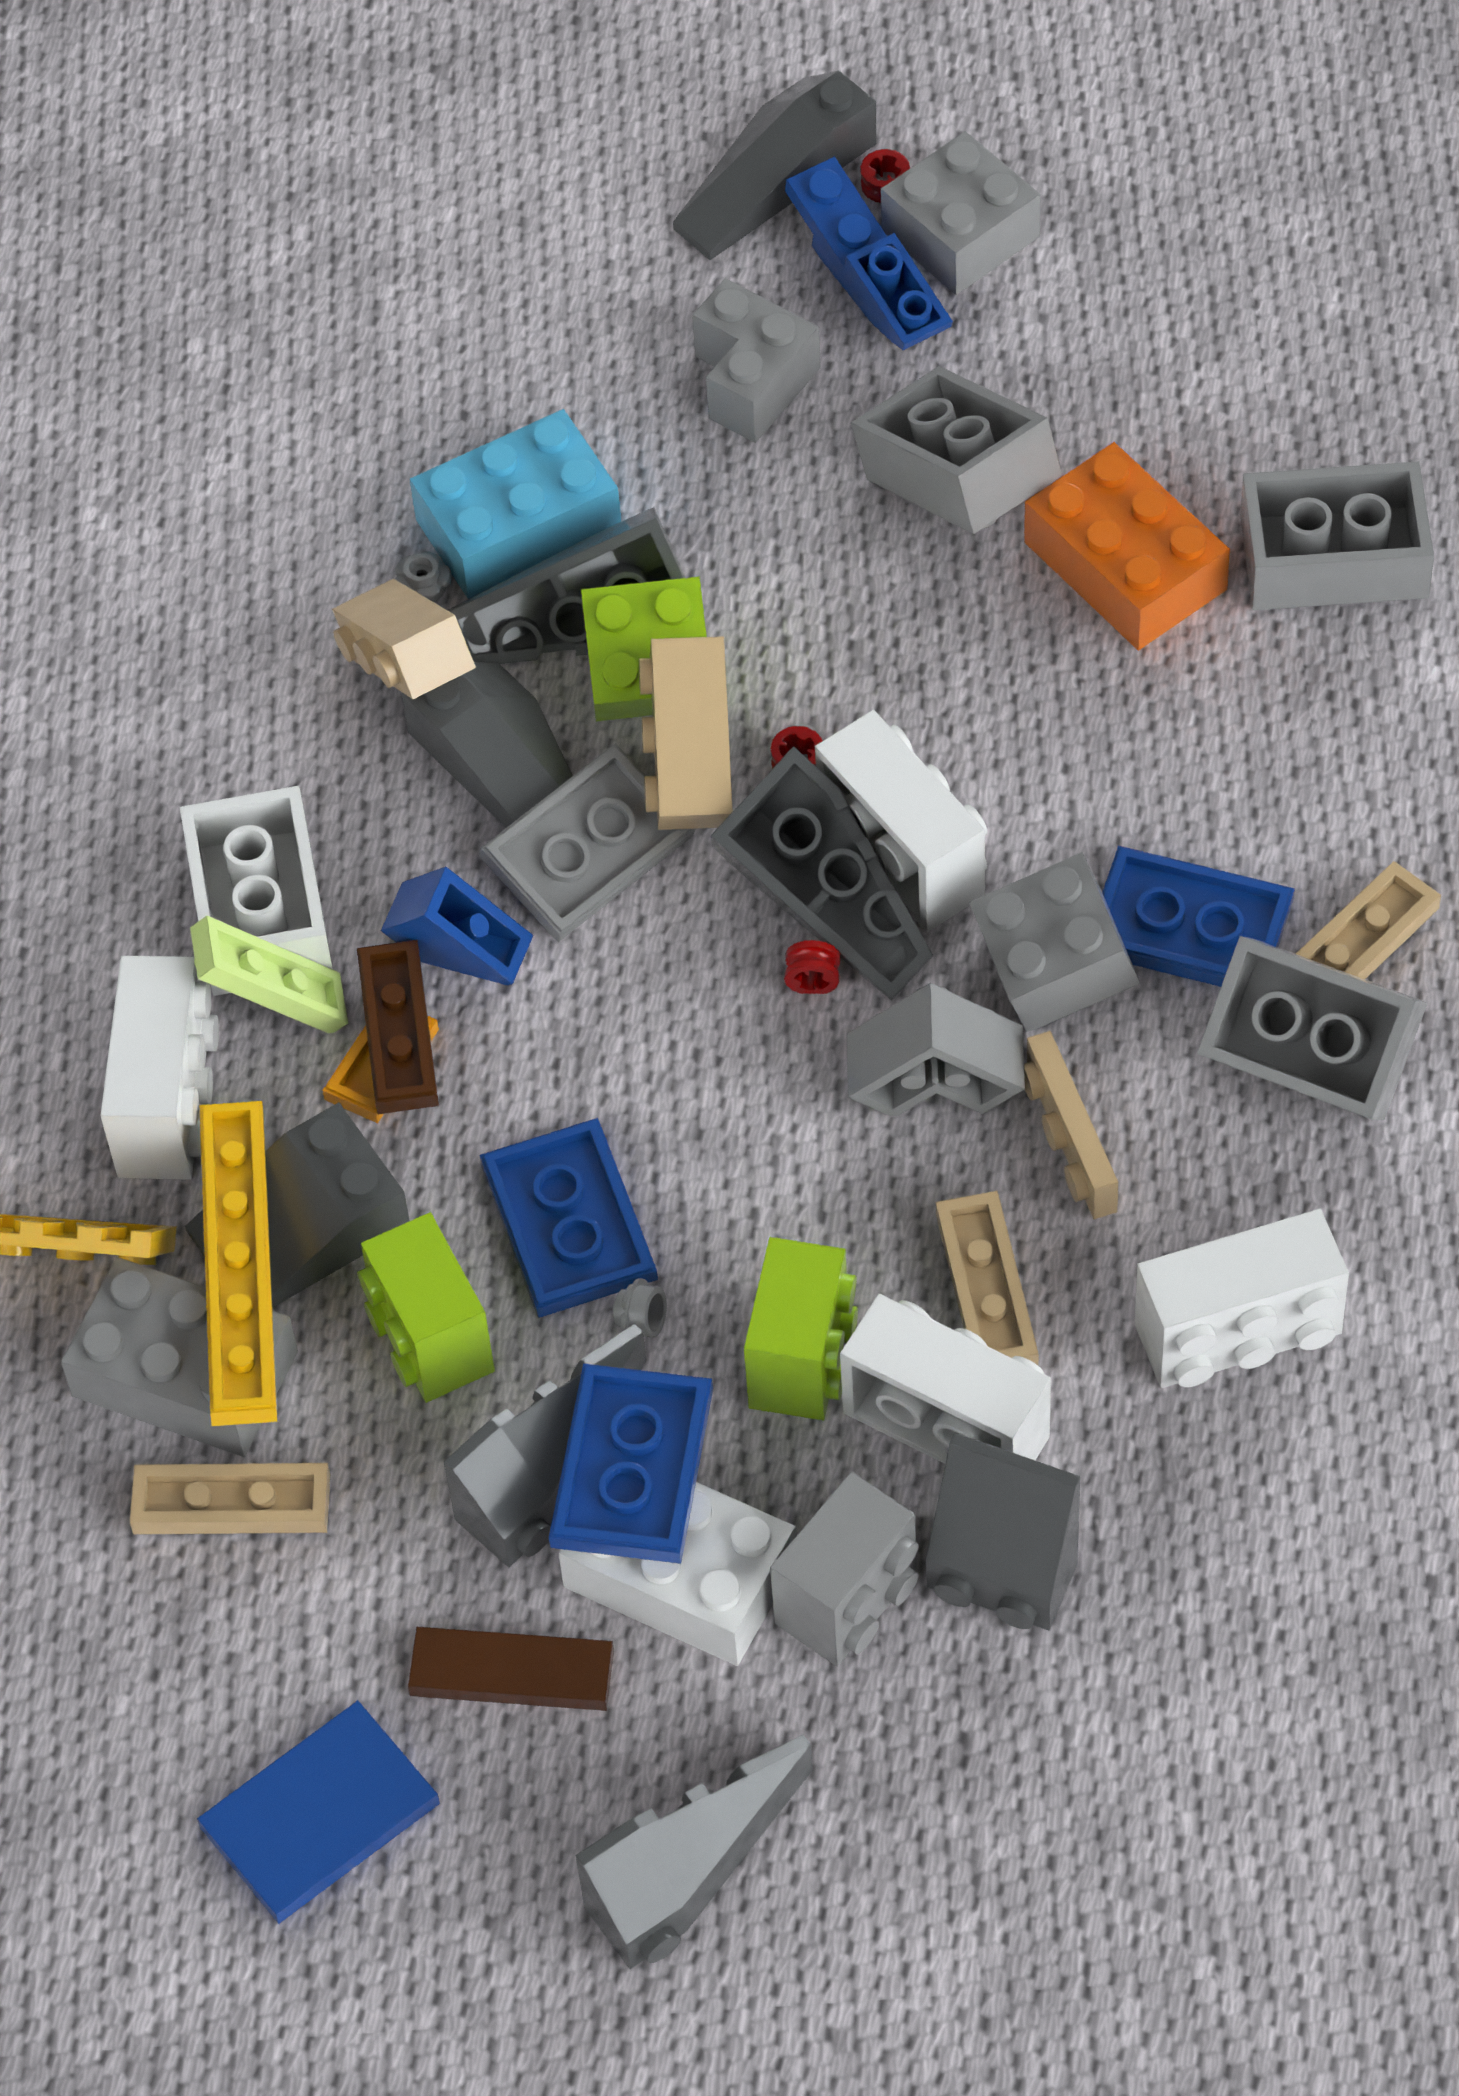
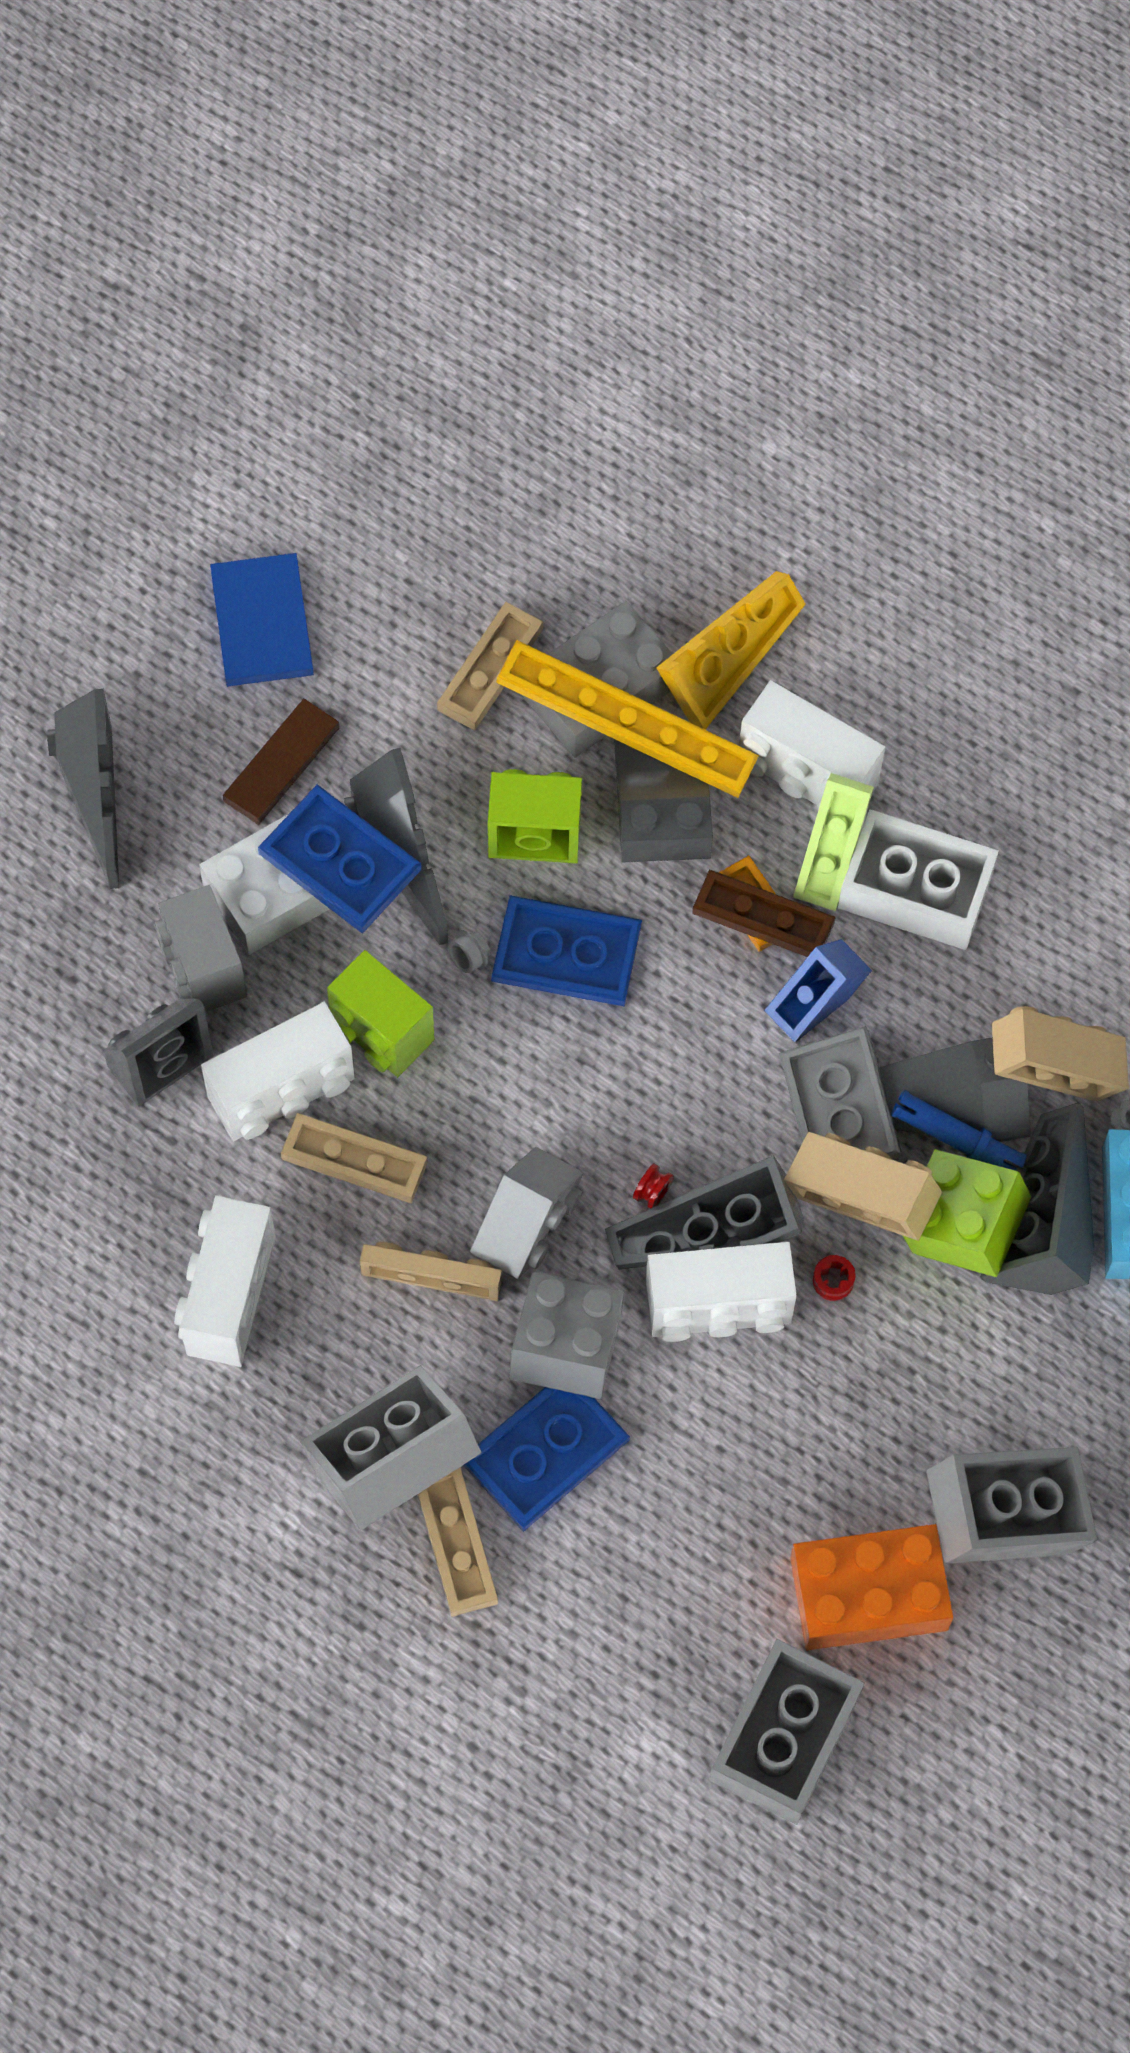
camera: 115 degrees right, 10 degrees up
(551, 695) = (955, 1133): none -> blue pin

